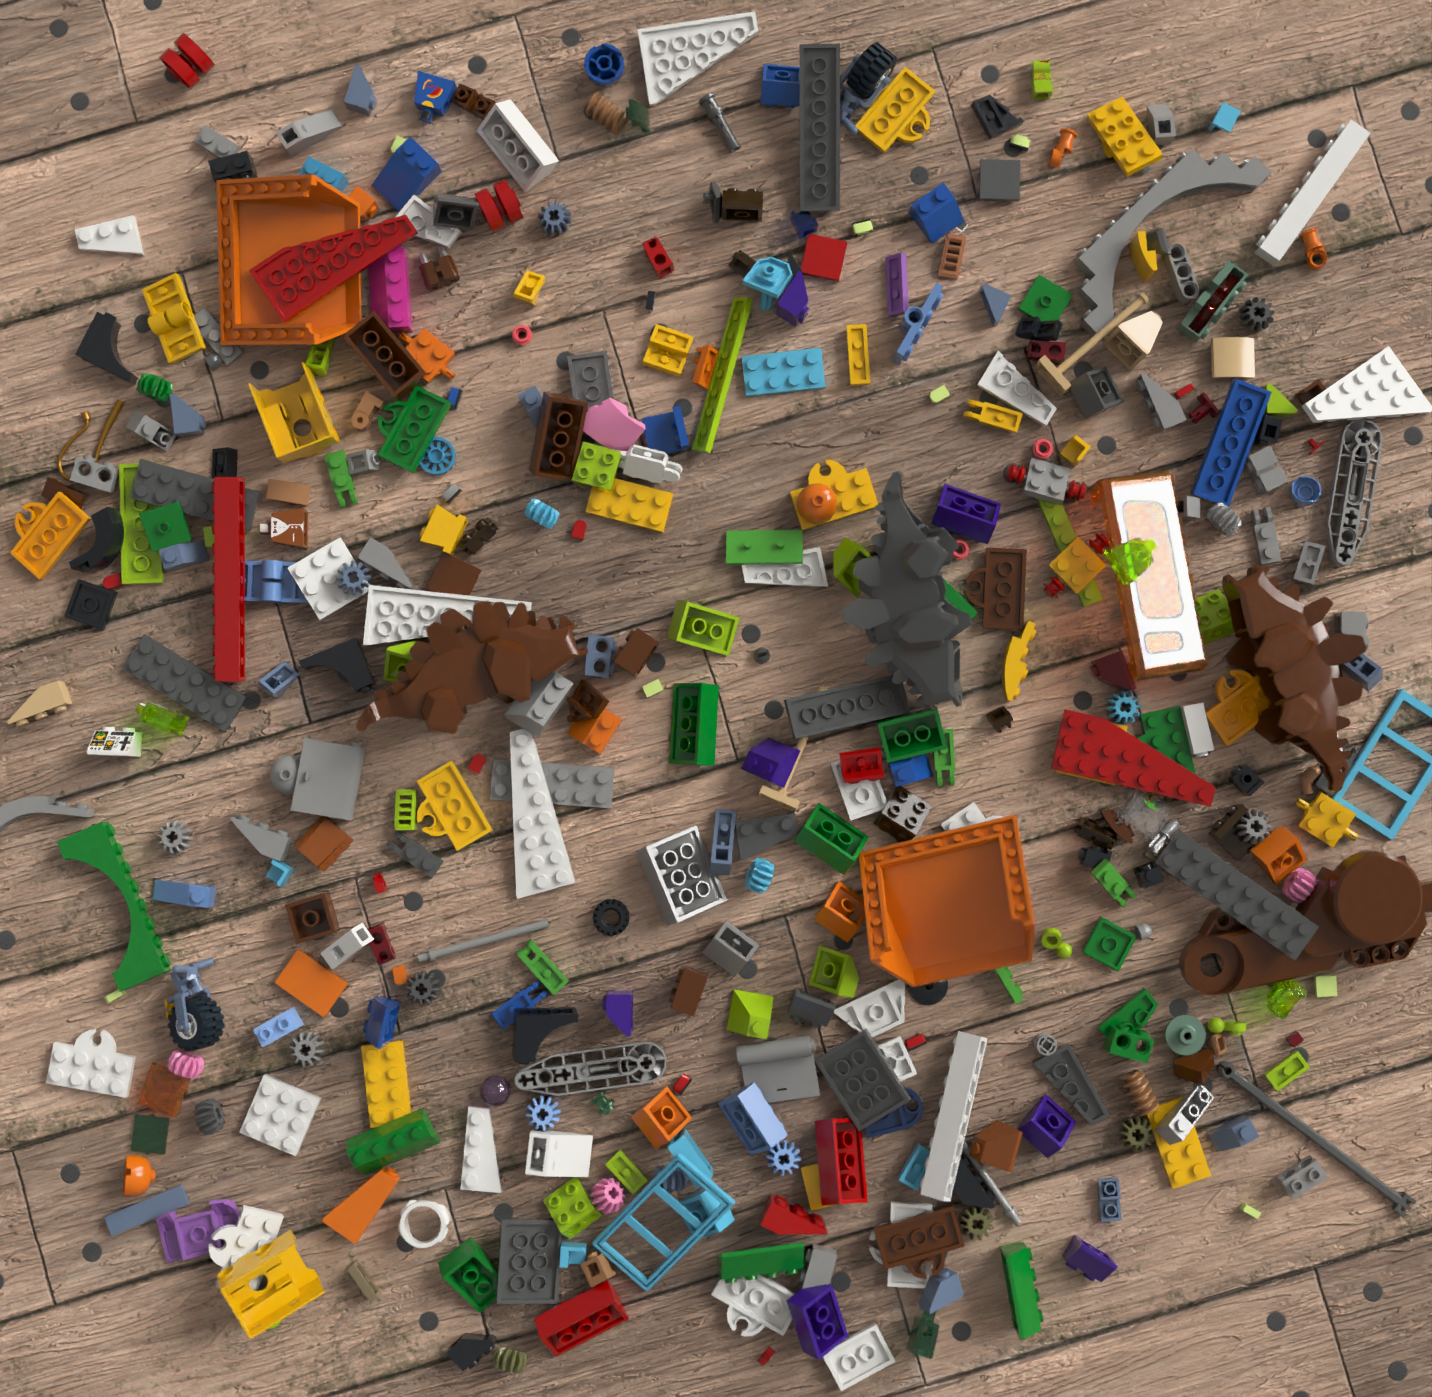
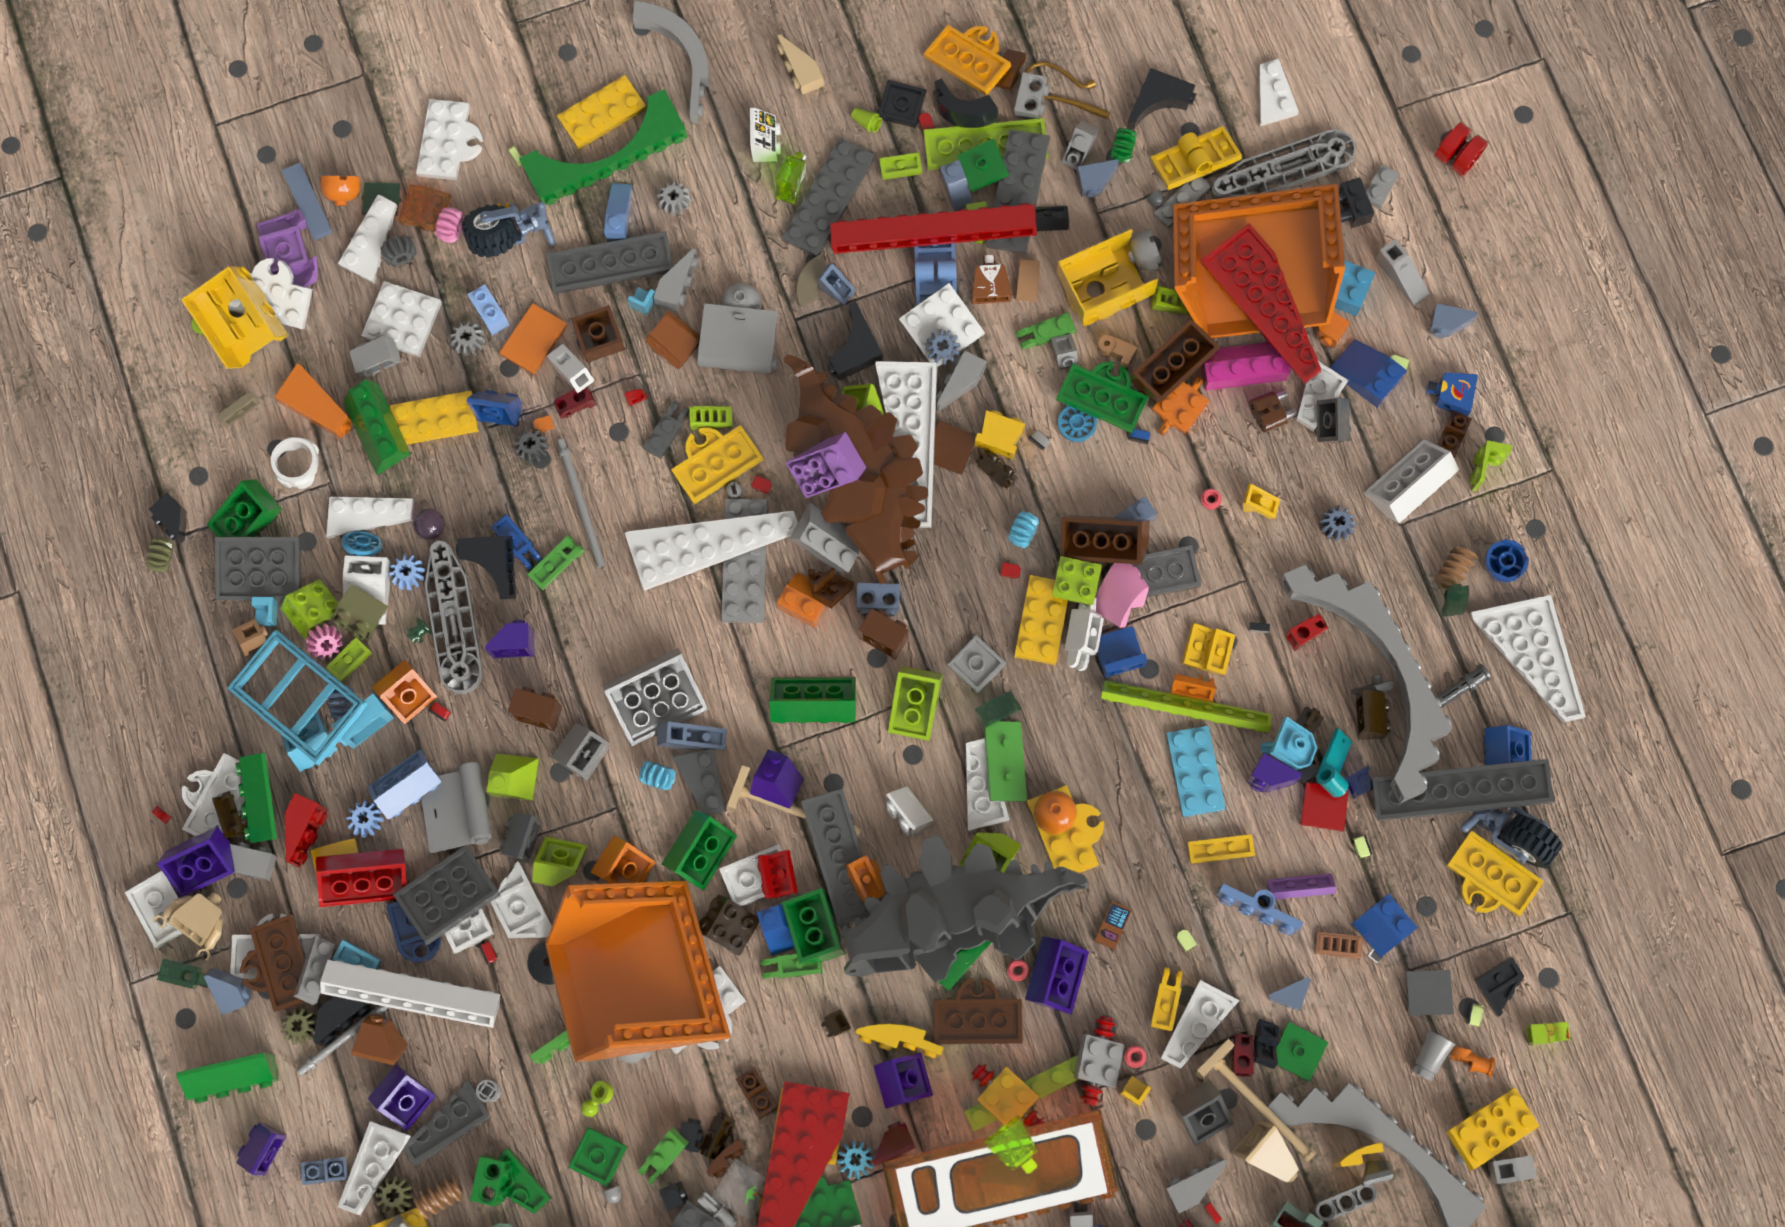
camera: 90 degrees right, 10 degrees down
(74, 907) = (601, 112): none -> yellow plate
(105, 639) = (867, 119): none -> lime cone
(158, 609) = (900, 166): none -> lime plate
(181, 201) = (1276, 168): none -> light grey beam
(203, 1151) = (364, 250): none -> white wing
(237, 903) = (609, 262): none -> dark grey plate
(268, 375) = (1145, 252): none -> light grey cylinder
(271, 706) = (808, 280): none -> dark tan tile
(319, 1146) = (370, 355): none -> light grey piece
(475, 693) = (826, 465): none -> medium lavender slope
(480, 786) = (739, 490): none -> light grey hinge
(502, 204) = (1346, 470): red wheel -> none
(503, 76) = (1492, 454): none -> lime bracket
(511, 1157) = (361, 543): none -> dark azure wheel
(581, 1318) = (200, 623): red slope -> none
(583, 1160) = (359, 613): none -> olive slope
(604, 928) = (608, 615): black tyre -> none
(652, 688) = (849, 656): yellowish green piece -> none
(668, 568) = (976, 664): none -> light grey tile
(714, 550) = (997, 709): none -> clear green slope
(741, 156) = (1367, 612): none -> light grey arch
(764, 659) = (885, 767): dark grey hinge -> none
(774, 1290) = (228, 815): none -> dark brown hinge
(798, 248) = (1329, 771): none -> teal door
(808, 638) = (909, 812): none -> white slope
(870, 682) = (866, 878): none -> orange slope
(872, 1320) = (196, 918): none -> tan torso
(922, 459) = (1113, 925): none -> tile
(927, 1207) = (309, 982): none -> light grey plate
(1054, 660) = (903, 1080): none -> dark purple slope
(1056, 183) = (1432, 1055): none -> light grey plant
(1058, 795) = (757, 1093): none -> reddish brown slope
(1104, 1153) = (373, 1161): none -> white wing

